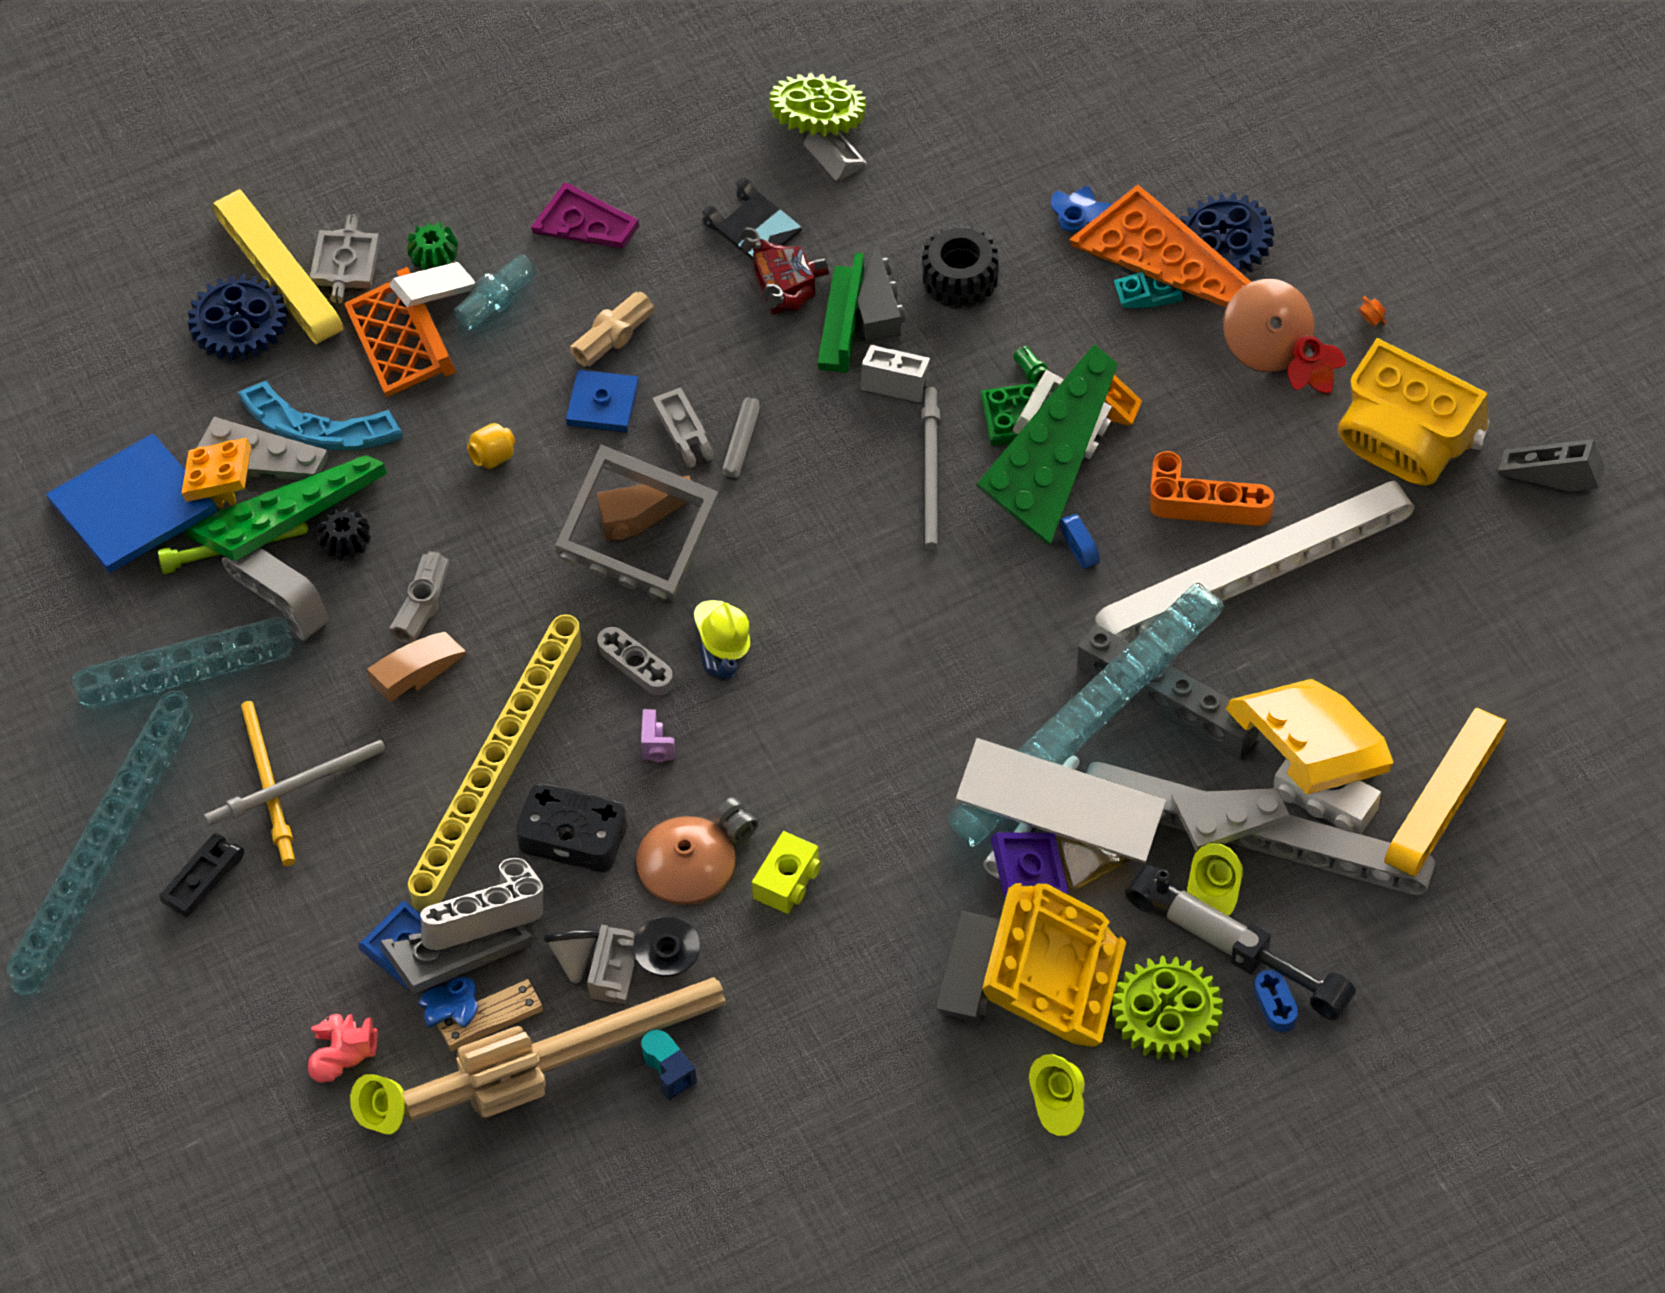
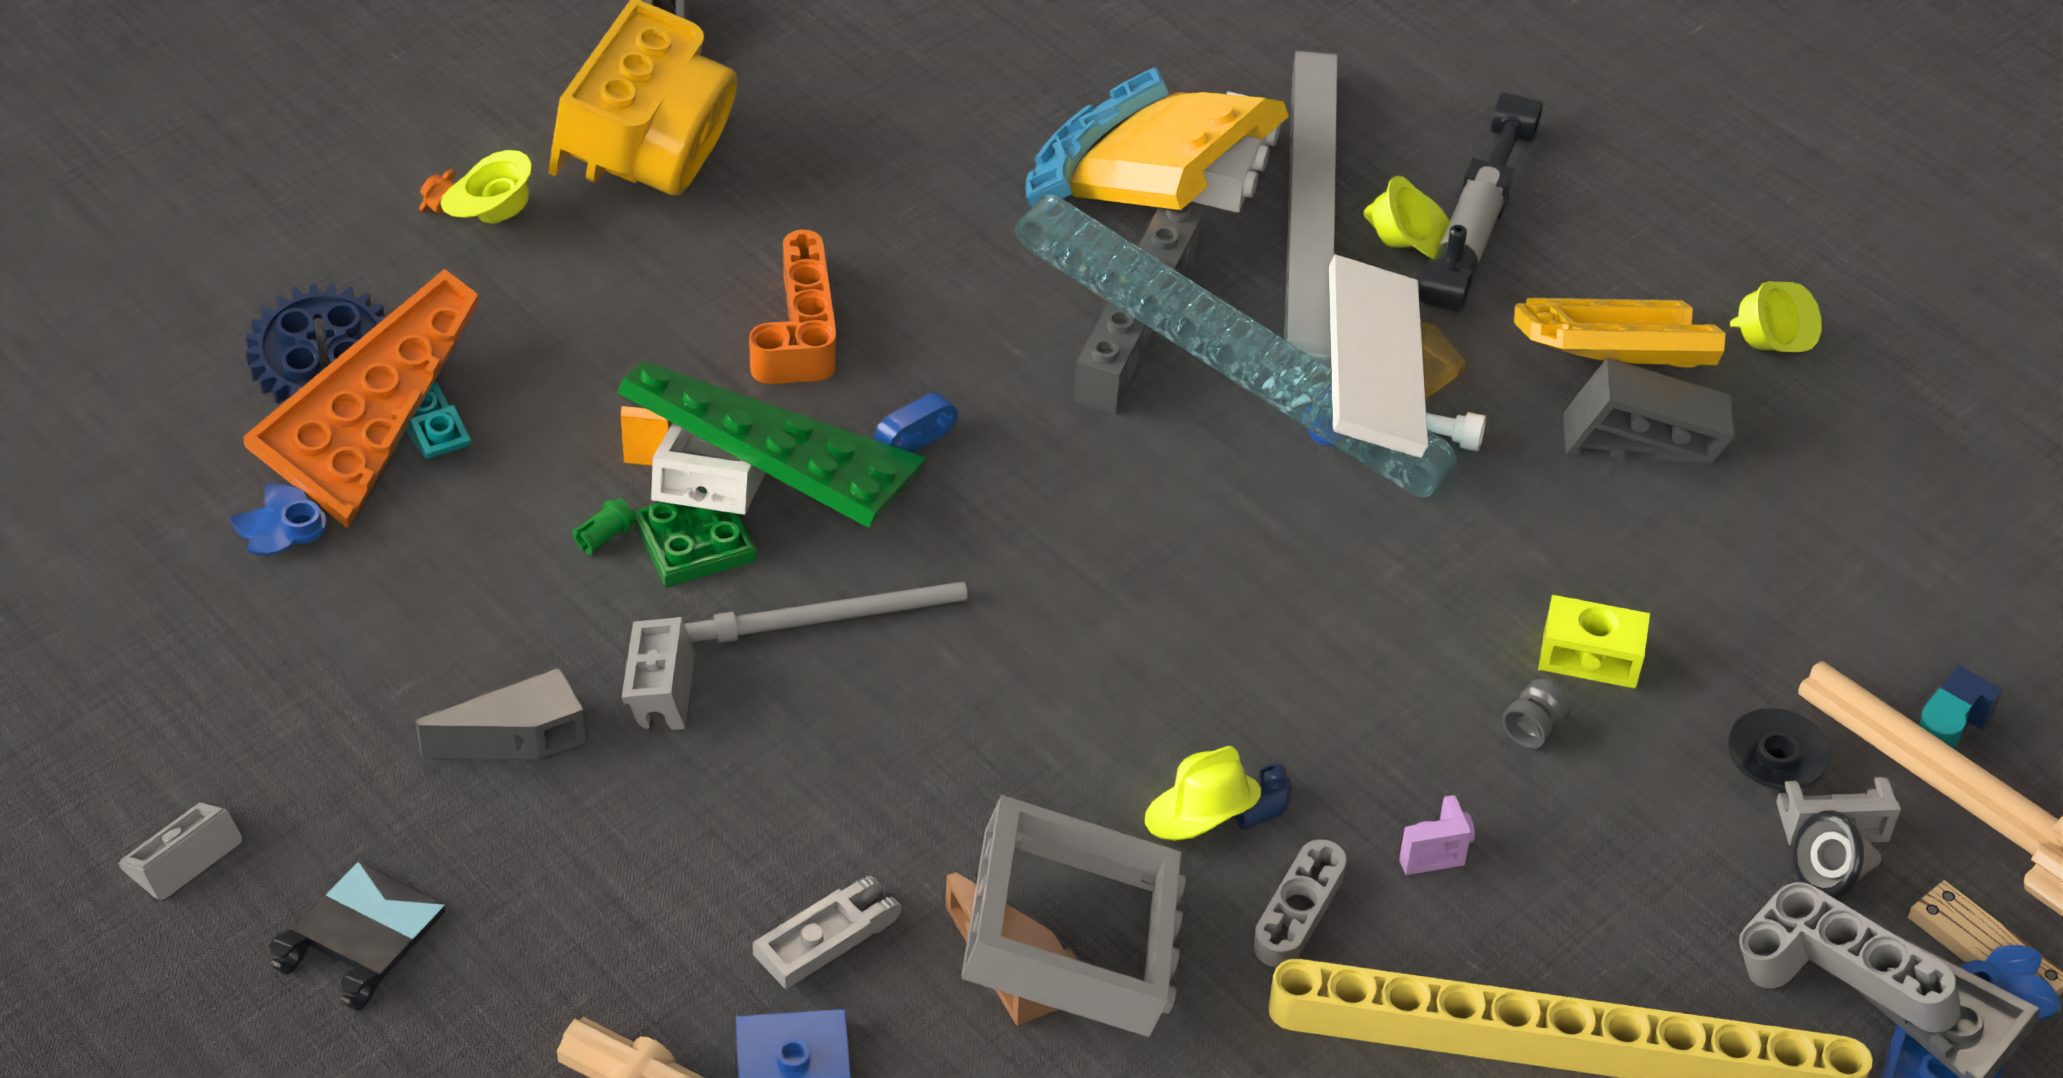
camera: 110 degrees left, 10 degrees down
(571, 827) = (1639, 907): black axle -> none
(690, 874) = (1614, 774): nougat dish -> none
(741, 437) = (825, 853): light grey axle -> none
(782, 272) = (488, 847): torso -> none
(817, 104) = (93, 869): lime gear -> none
(841, 317) = (549, 766): green fence -> none
(966, 284) = (435, 653): black tyre -> none
(1028, 860) = (1477, 389): dark purple plate -> none
(1144, 991) = (1605, 248): lime gear -> none
(1228, 815) = (1324, 208): light grey wing -> none
(1249, 328) = (497, 268): nougat dish -> none
(1265, 557) = (906, 258): white beam -> none
(1269, 1003) = (1542, 168): blue beam -> none
(1316, 369) = (536, 230): red plate -> none
(1354, 329) = (491, 189): none -> neon yellow piece
(1374, 704) = (1071, 141): none -> dark azure tile
(1445, 792) = (1205, 41): yellow beam -> none

